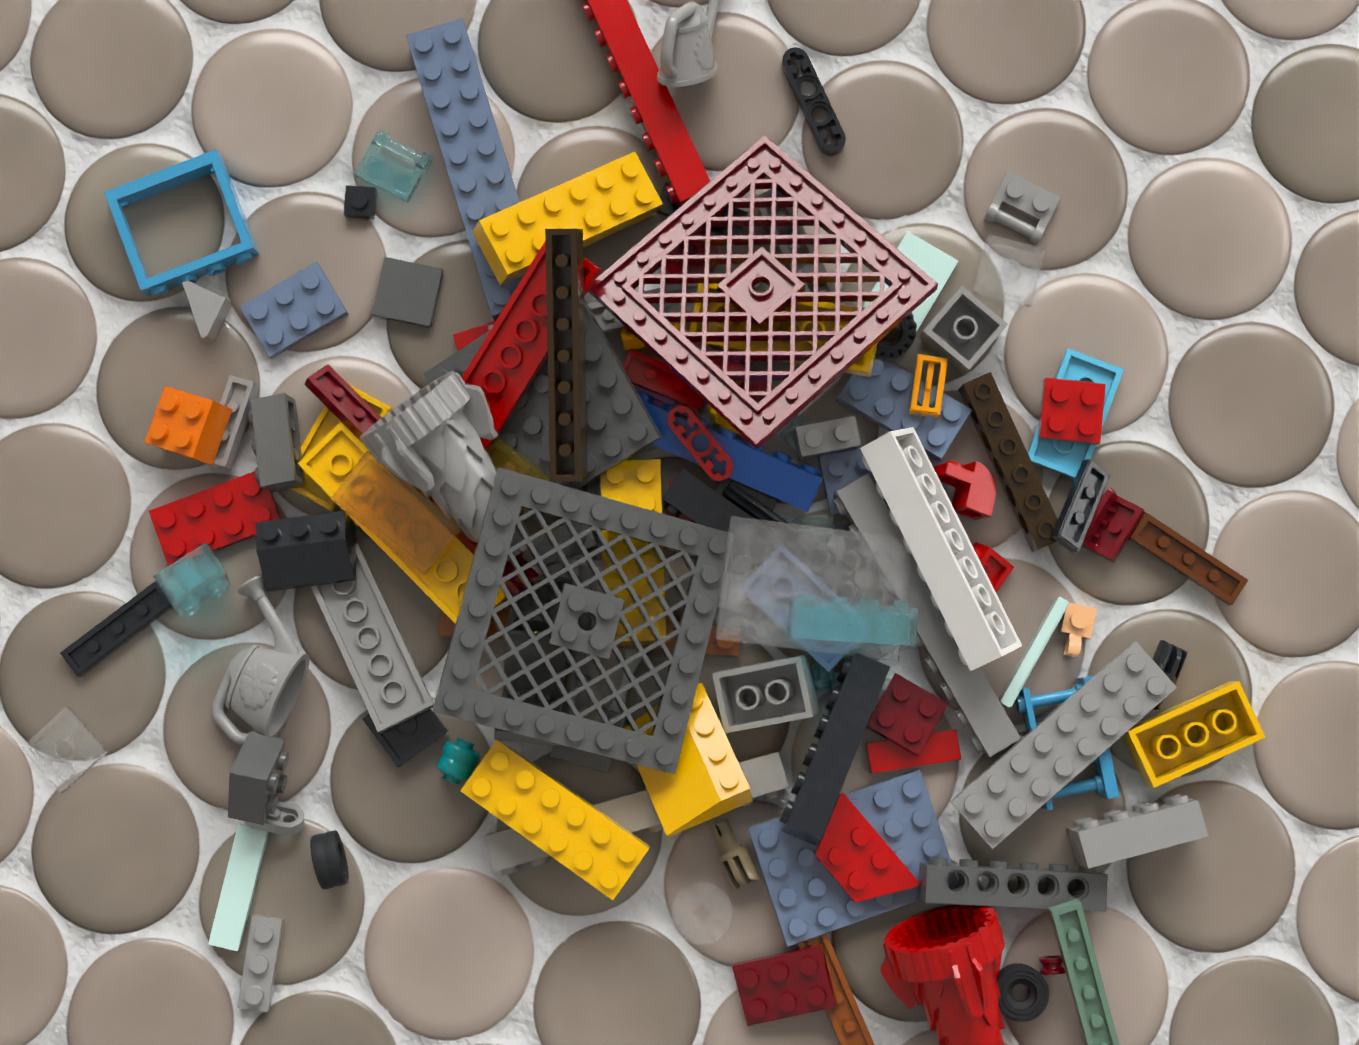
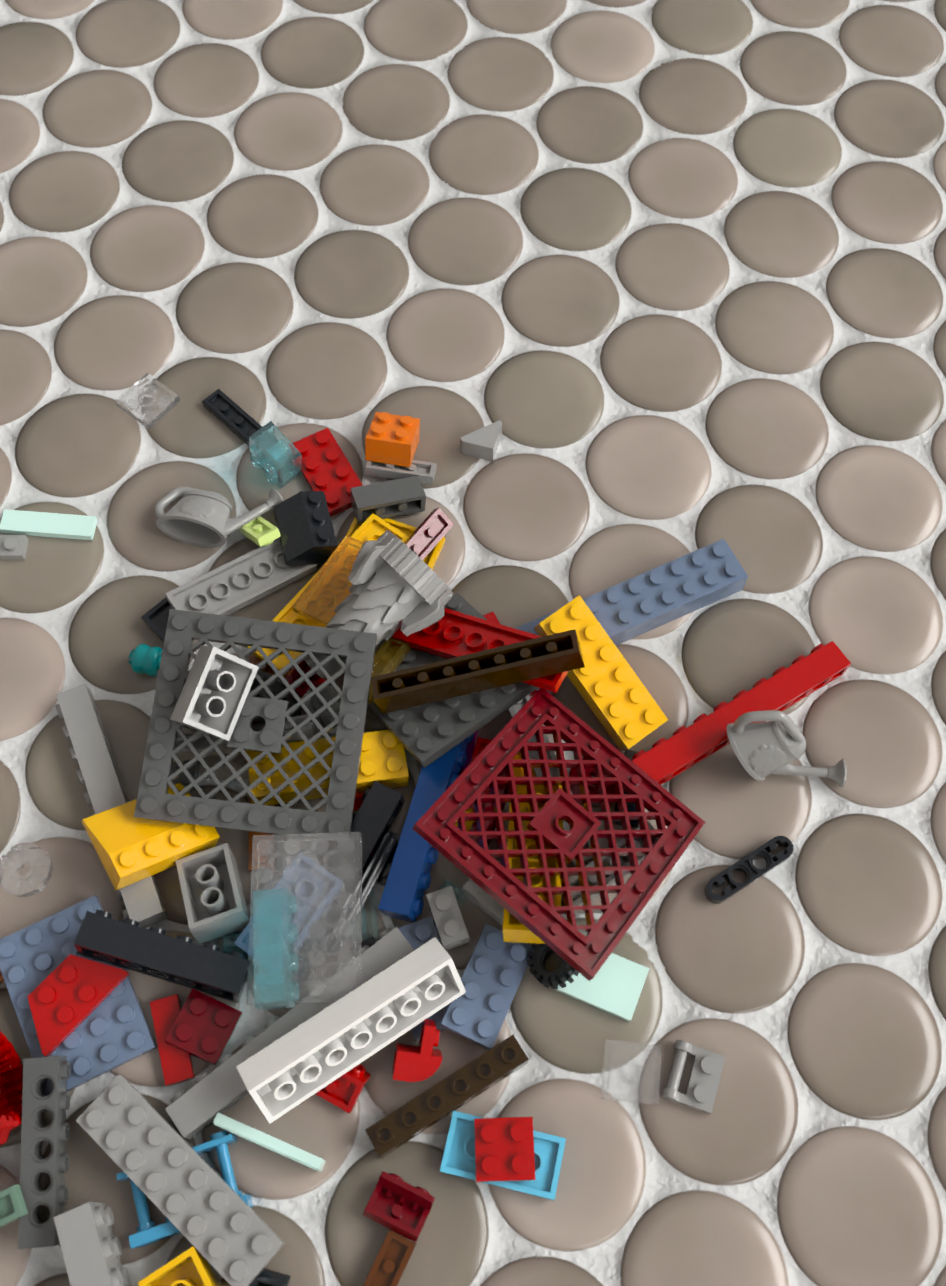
camera: 80 degrees right, 20 degrees down
(166, 180) = (553, 375): dark azure window -> none
(257, 778) = (125, 515): dark grey brick -> none
(286, 820) = (101, 540): light grey plate -> none
(293, 310) = (494, 500): sand blue plate -> none
(301, 608) = (260, 531): none -> yellowish green plate
(329, 859) = (66, 577): black tyre -> none
(360, 202) = (587, 533): black plate -> none
(389, 174) = (612, 548): clear light blue plate -> none
(407, 292) = (521, 575): dark grey tile -> none
(550, 665) = (214, 692): none -> light grey slope
(555, 819) = (95, 733): yellow brick -> none
(720, 456) = (414, 805): red beam -> none
(734, 857) = (71, 889): dark tan arm -> none
(925, 410) = (483, 1001): light orange tile -> none
(963, 330) = (564, 1030): light grey brick -> none
(1078, 624) = (302, 1186): light nougat plate -> none
(1080, 505) = (412, 1168): black tile -> none

